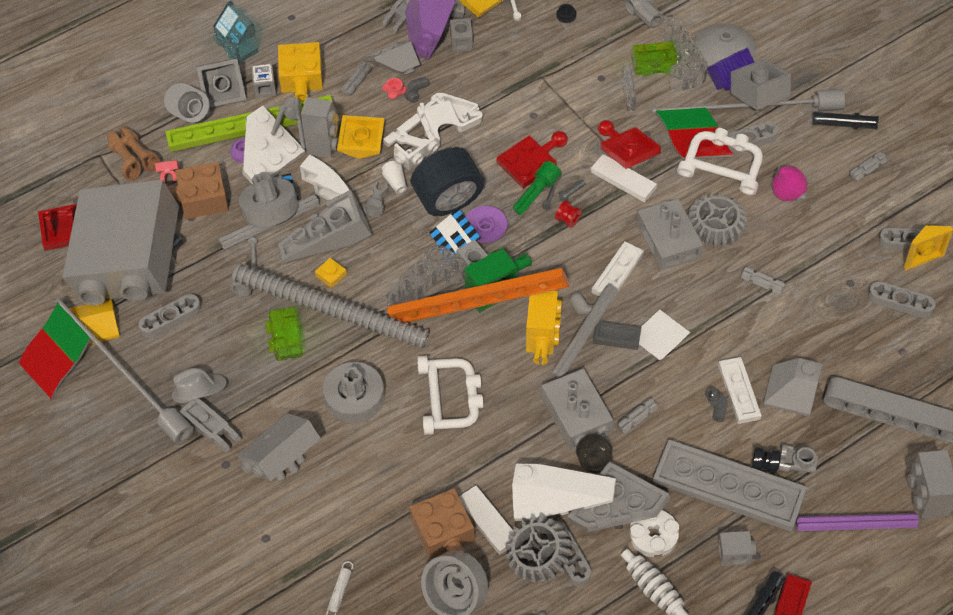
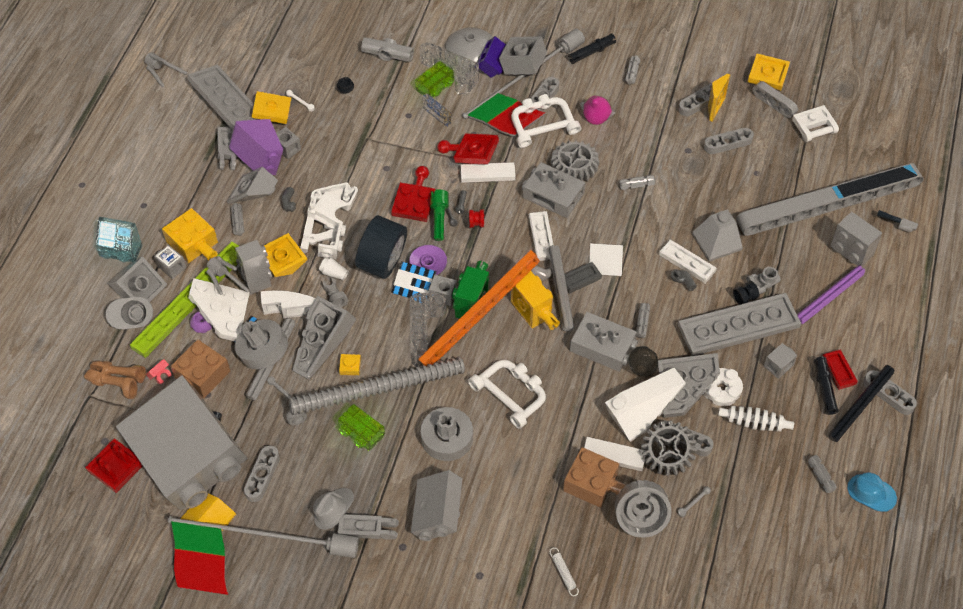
camera: 40 degrees left, 0 degrees up
(394, 88) = (272, 204): coral plate -> none

